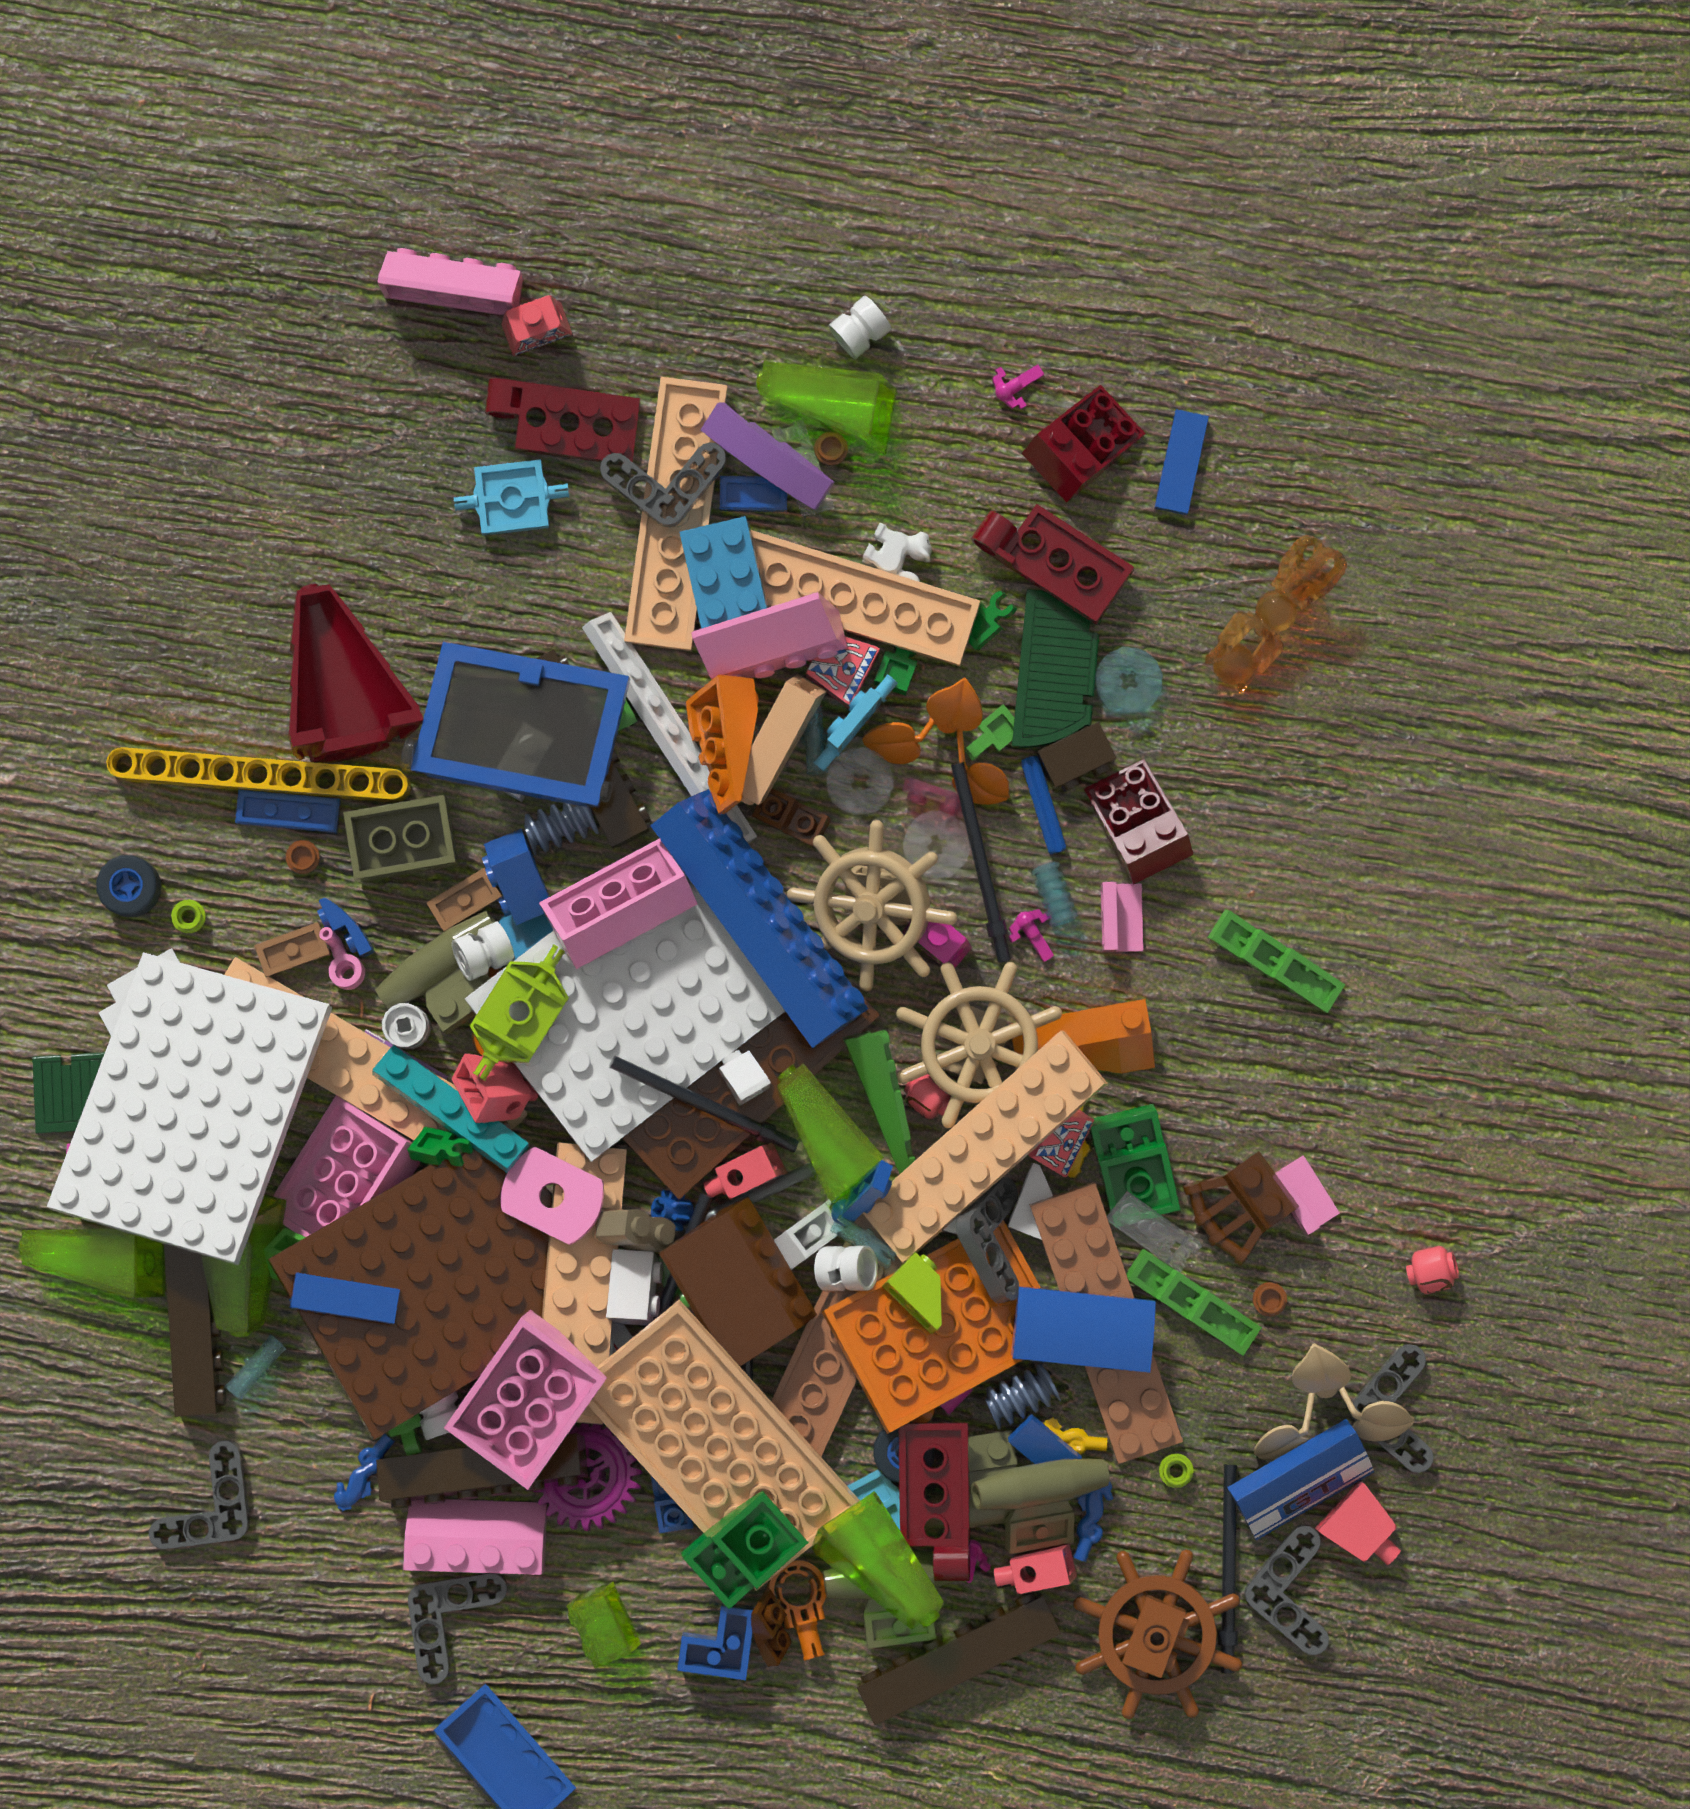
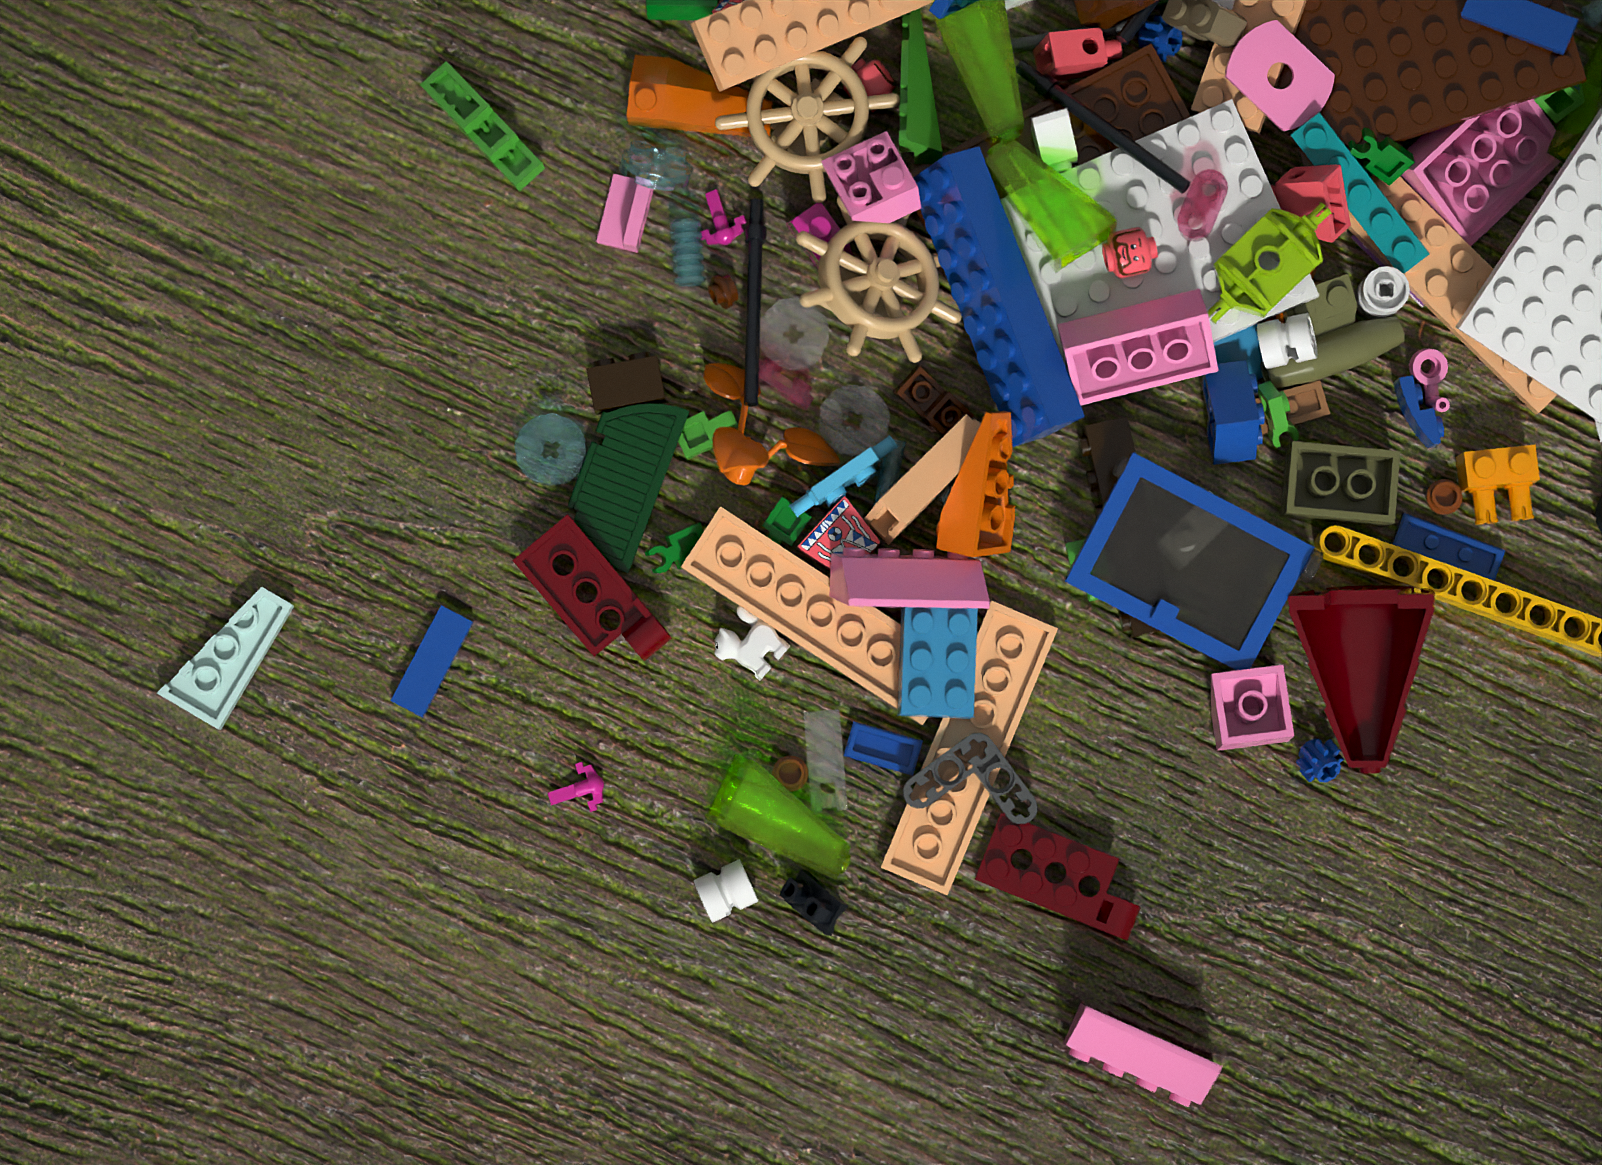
camera: 165 degrees left, 0 degrees up
(179, 911) = (1585, 462): lime plate -> none
(257, 894) = (1506, 468): none -> light orange brick
(291, 950) = (1479, 404): medium nougat plate -> none
(357, 585) = (1319, 760): none -> blue gear
(431, 613) = (1250, 707): none -> bright pink slope
(477, 889) = (1275, 408): none -> bright green plate
(511, 497) = (1135, 811): medium azure plate -> none
(535, 324) = (1062, 985): coral torso -> none
(558, 825) = (1178, 455): sand blue piece -> none
(593, 1050) = (1202, 206): none -> clear pink plate
(648, 987) = (1129, 252): none -> coral head
(655, 710) = (1045, 549): white plate -> none
(732, 1009) = (1052, 209): none -> clear neon green slope
(767, 456) = (859, 775): medium lavender slope -> none
(776, 337) = (813, 901): none -> black hips
(902, 990) = (873, 181): none -> bright pink slope
(1012, 867) = (723, 291): none -> reddish brown plate
(1043, 804) = (673, 346): blue axle -> none
(1082, 443) = (527, 707): dark red slope -> none
(1093, 972) = (655, 166): none -> clear light blue plate
(1139, 821) = (581, 303): dark red slope -> none
(1276, 610) = (350, 494): clear orange piece -> none
(1365, 408) = (223, 668): none -> light aqua wing

